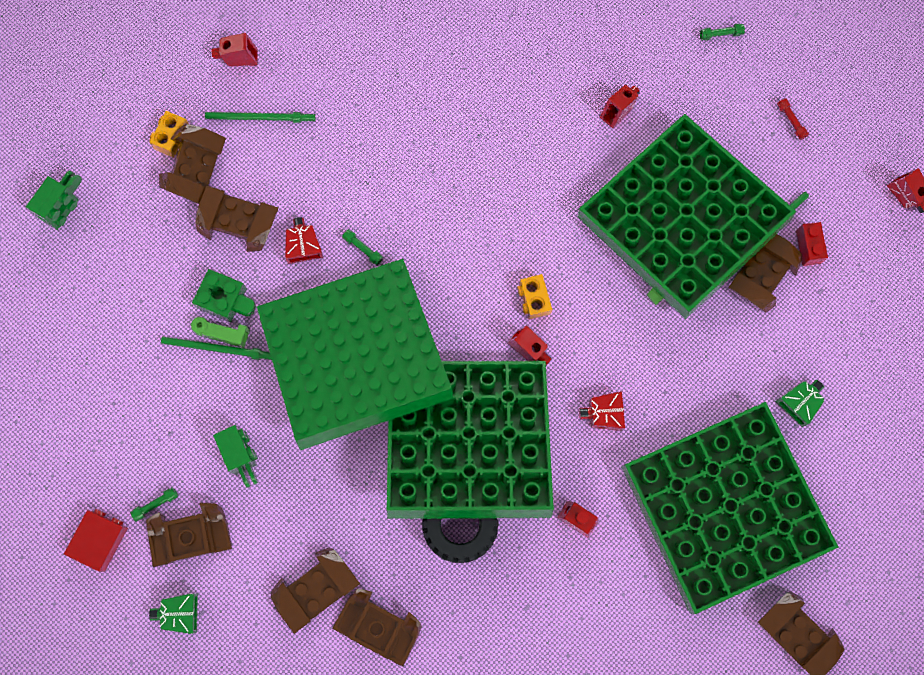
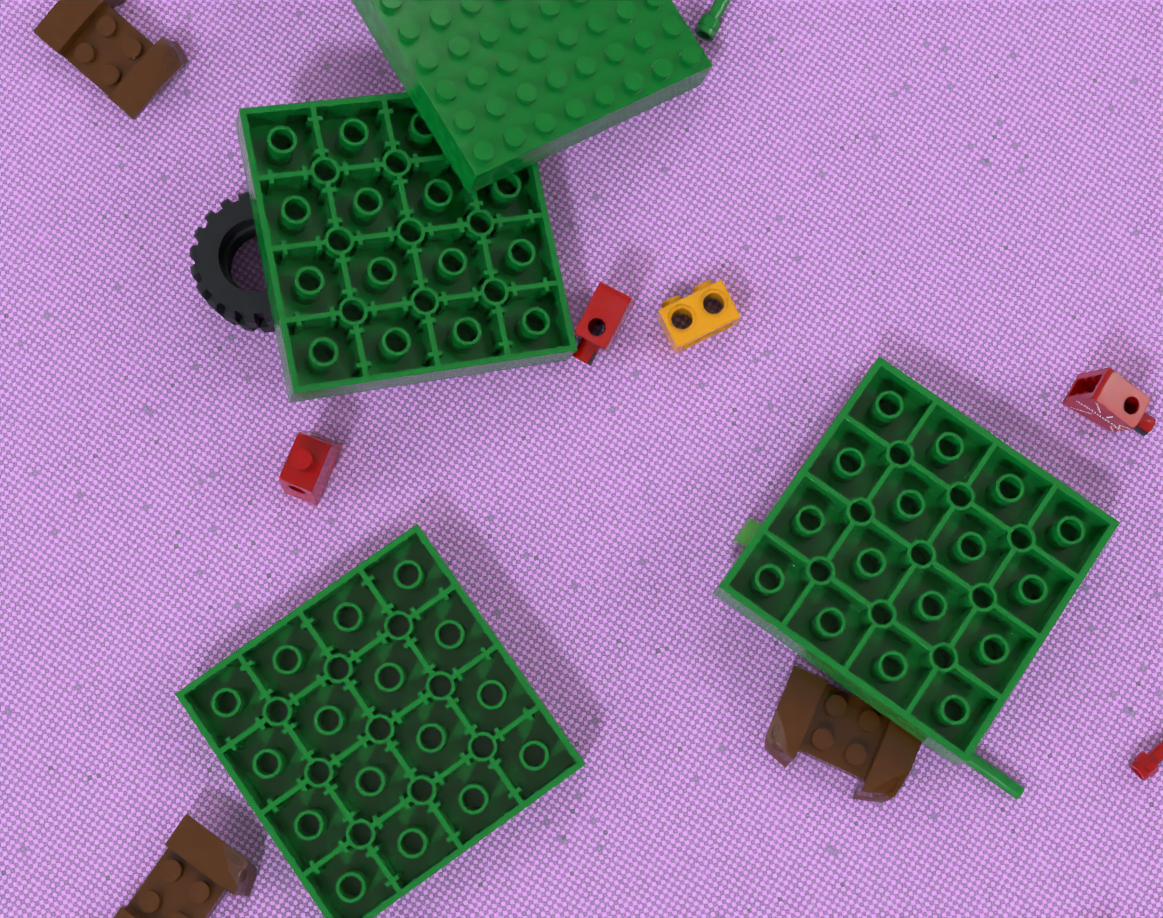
camera: 85 degrees right, 5 degrees up
(377, 628) = (67, 167): reddish brown piece -> none
(605, 412) = (512, 479): red torso -> none
(802, 402) = (607, 842): green torso -> none
(811, 243) = (919, 815): red brick -> none

